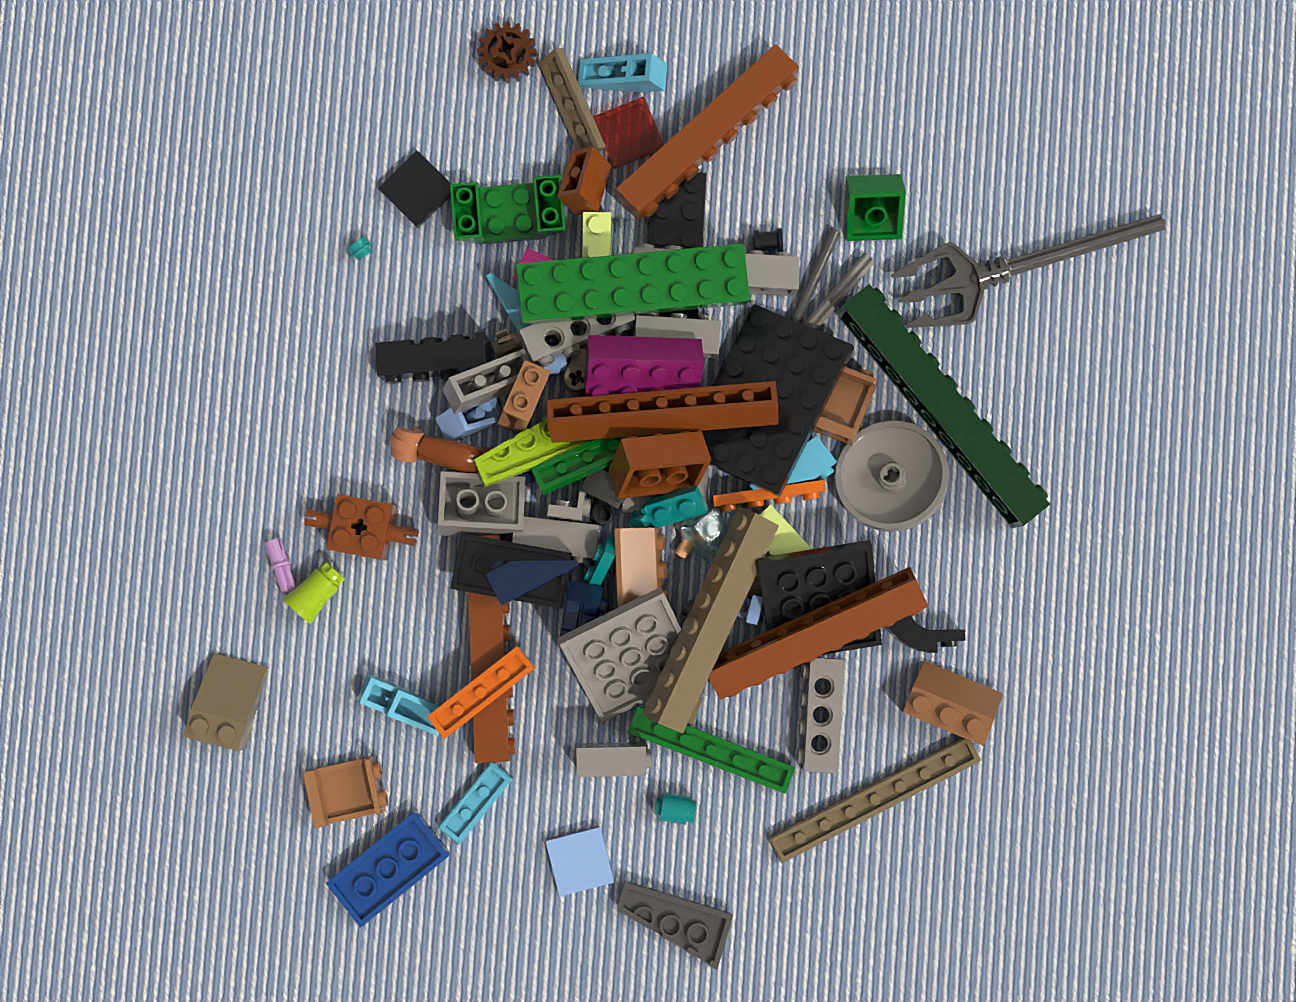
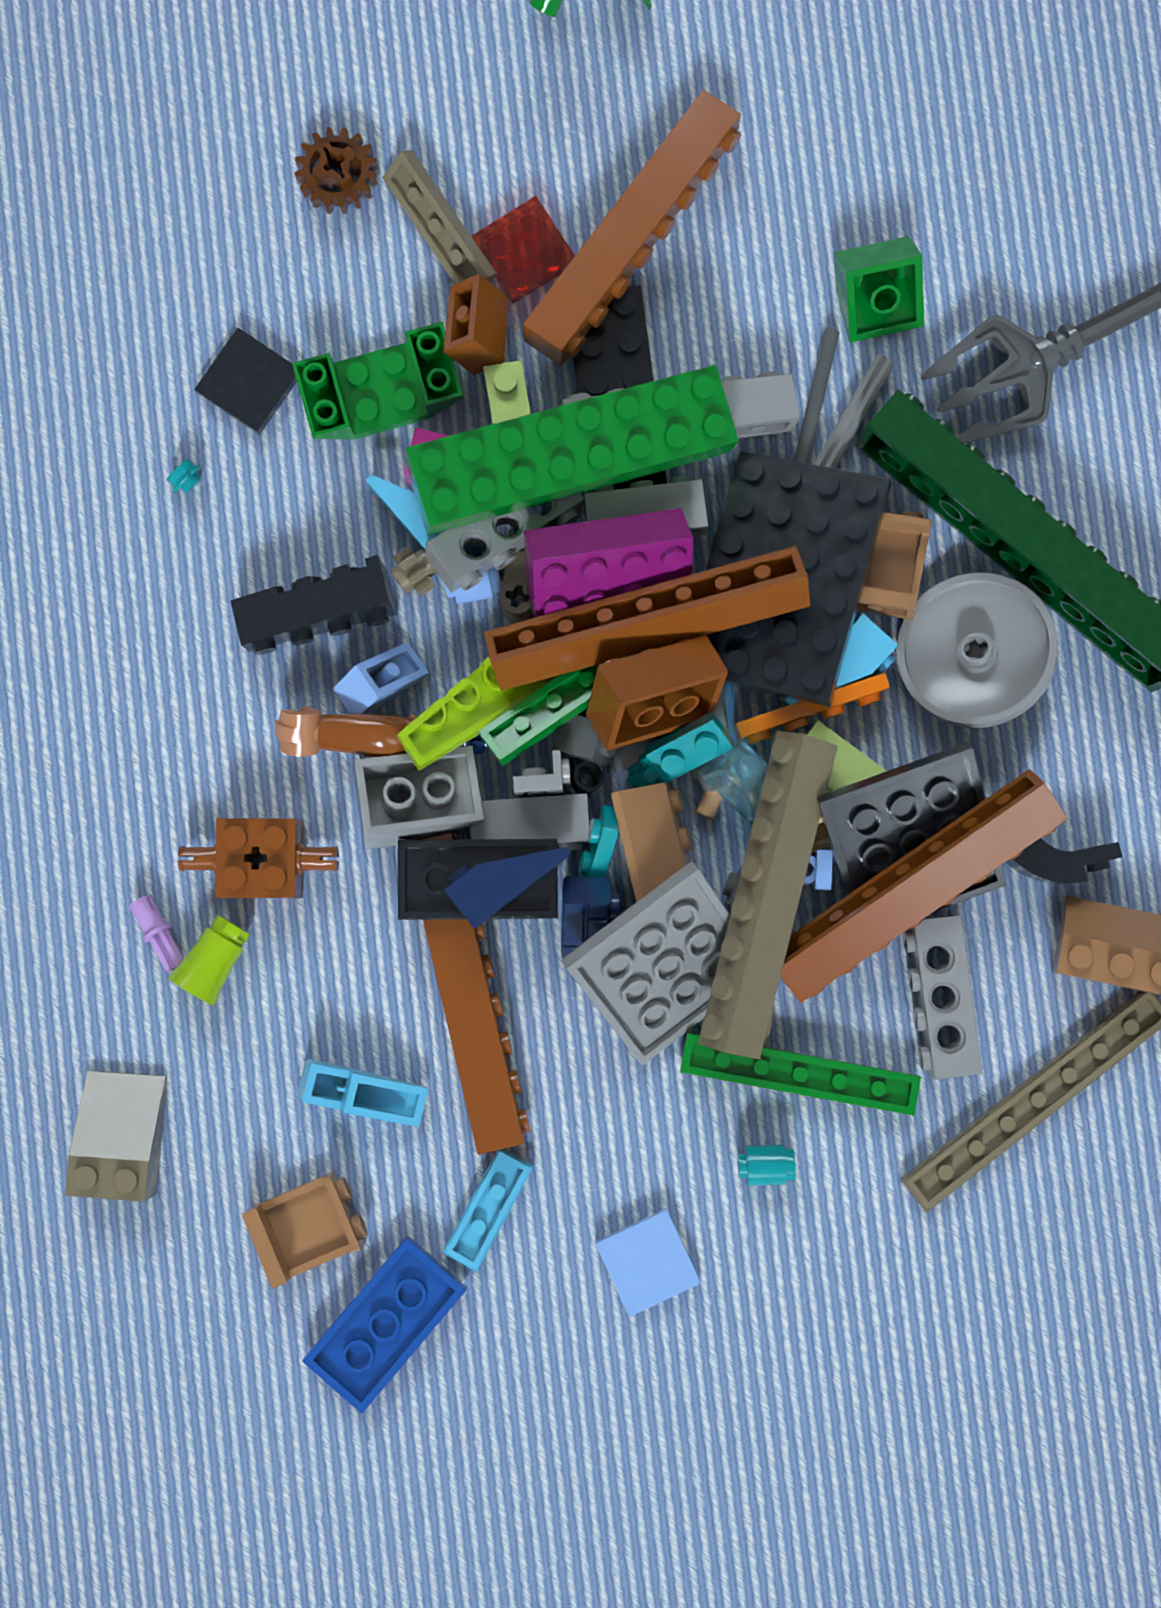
camera: 10 degrees left, 0 degrees up
(481, 692) = (468, 1055): orange plate -> none
(484, 382) = (397, 622): light grey brick -> none
(523, 397) = (450, 636): medium nougat panel -> none
(613, 759) = (669, 1113): light grey brick -> none
(624, 73) = (503, 169): medium azure slope -> none
(684, 922) = (800, 1318): dark grey wing -> none
(768, 240) = (743, 360): black bush -> none

